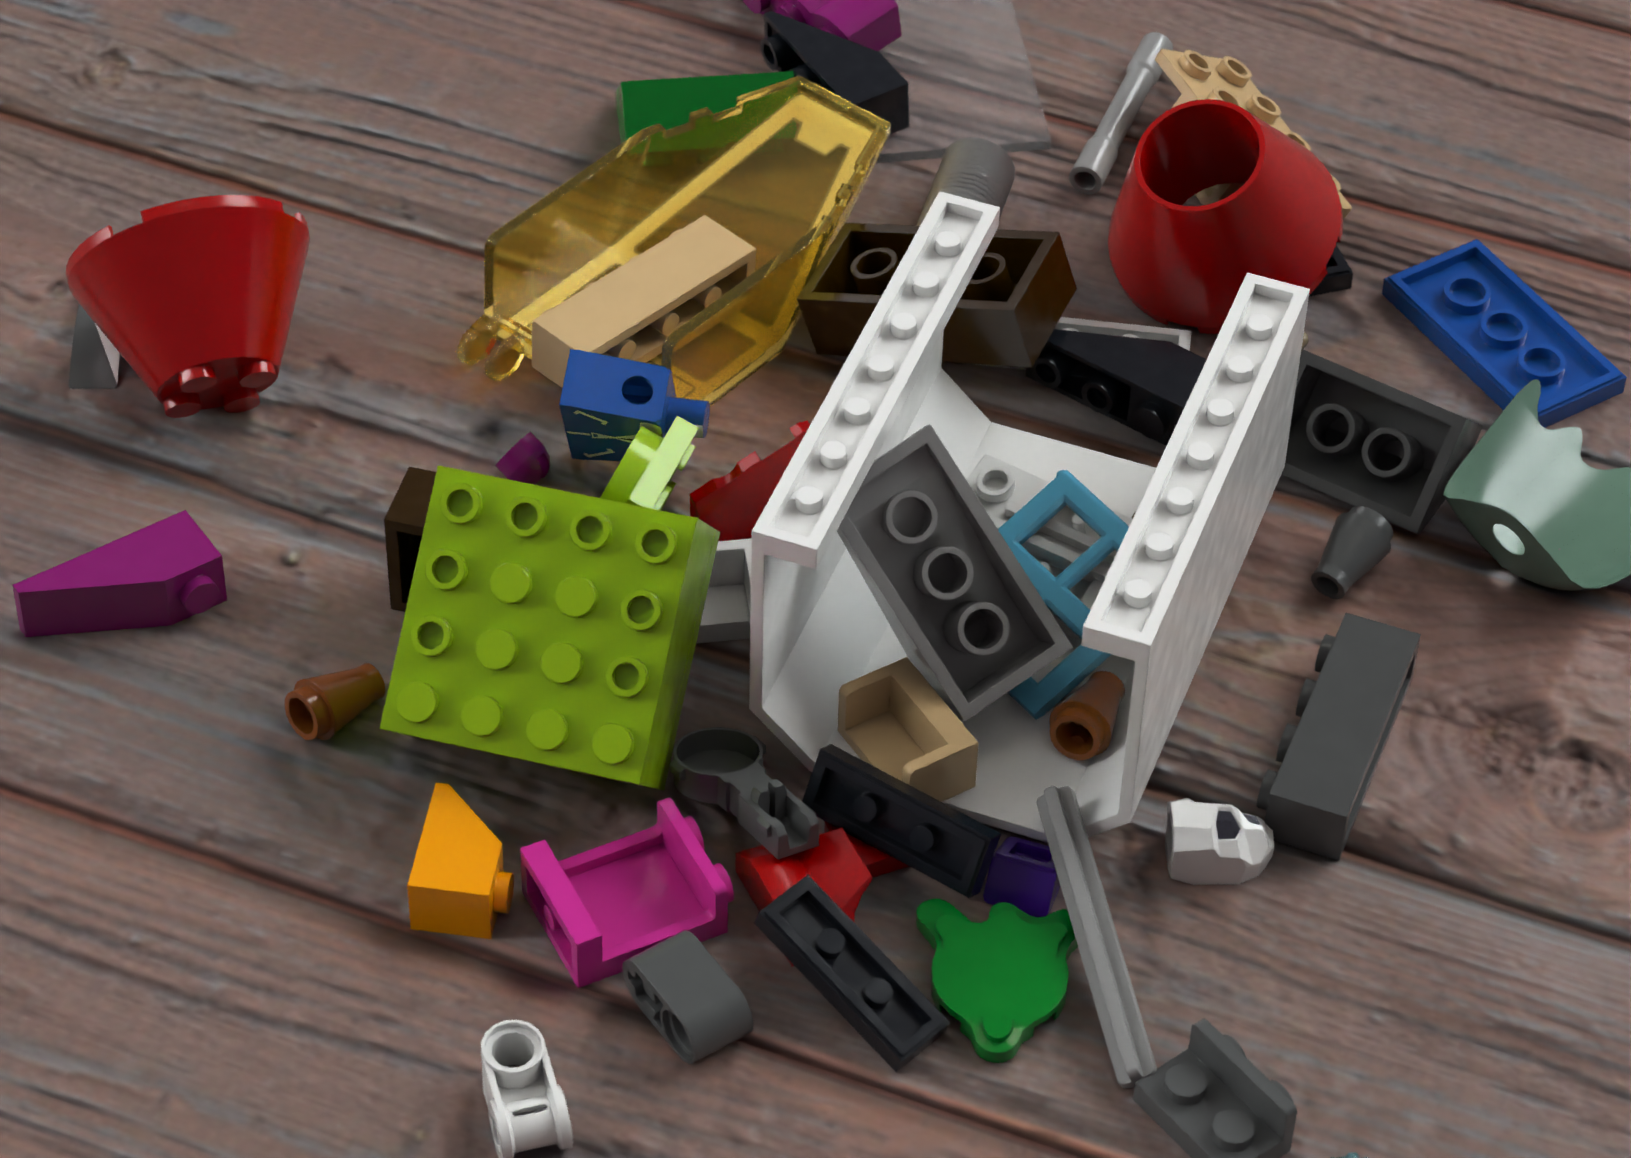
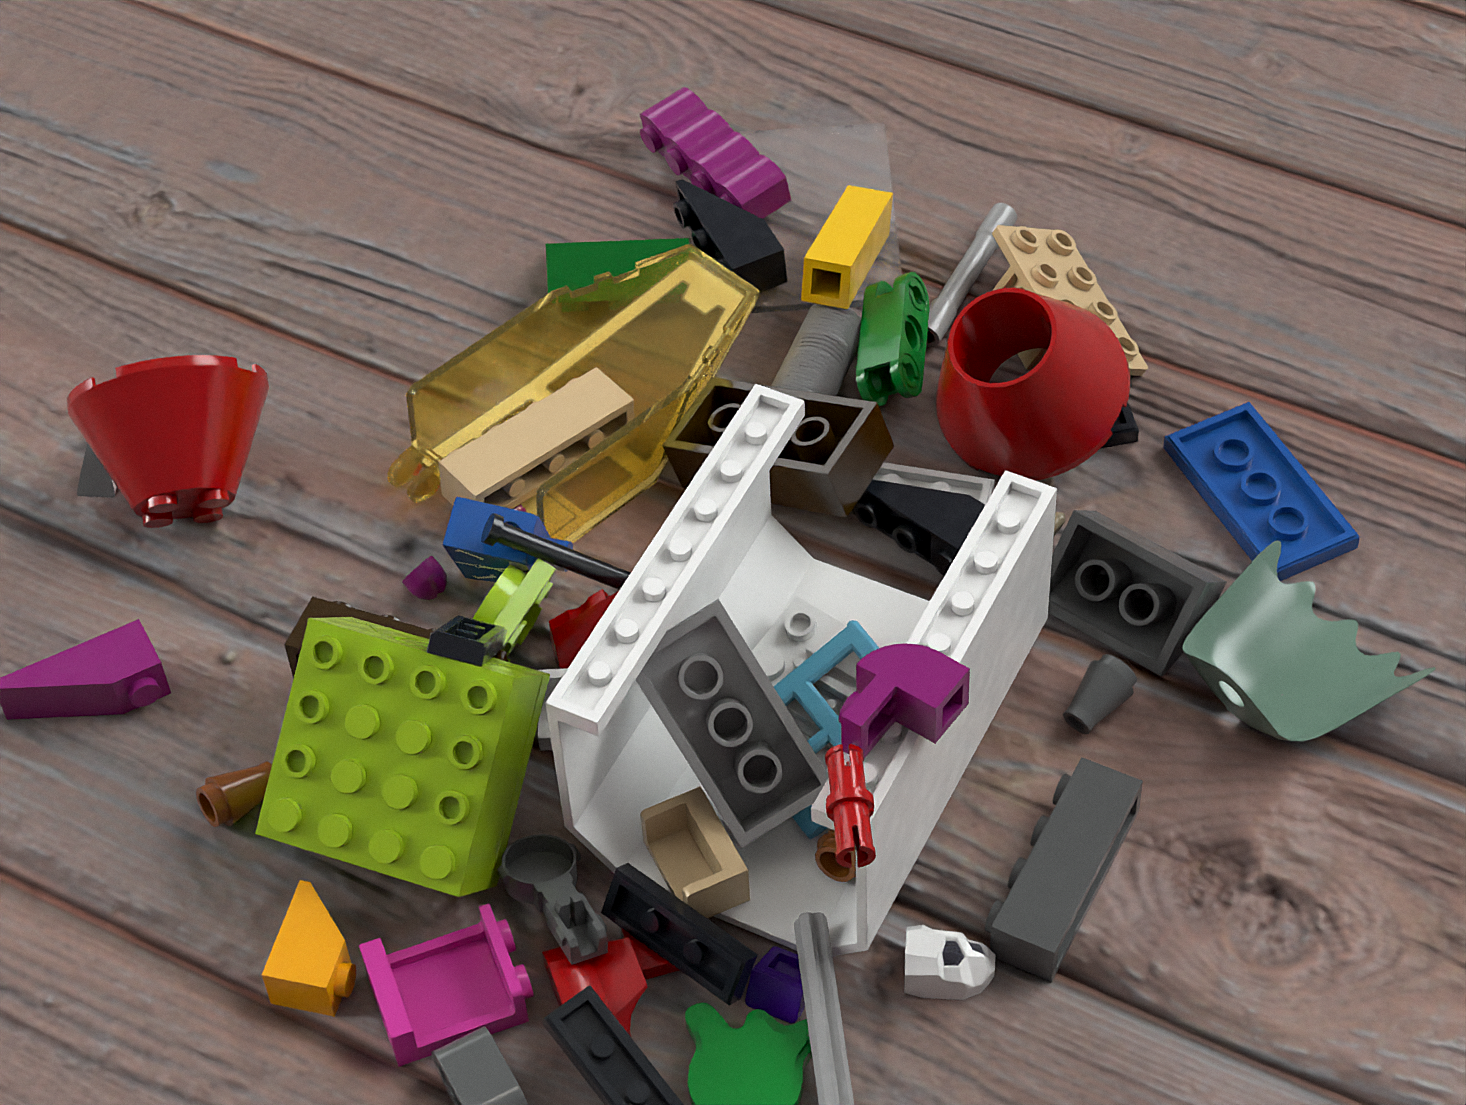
camera: 10 degrees right, 5 degrees up
(624, 489) = (467, 640): none -> black tile
(628, 383) = (551, 552): none -> black bar
(983, 78) = (846, 247): none -> yellow brick
(1051, 175) = (893, 339): none -> green piece
(1131, 618) = (850, 806): none -> red pin
(1178, 493) = (906, 687): none -> magenta brick

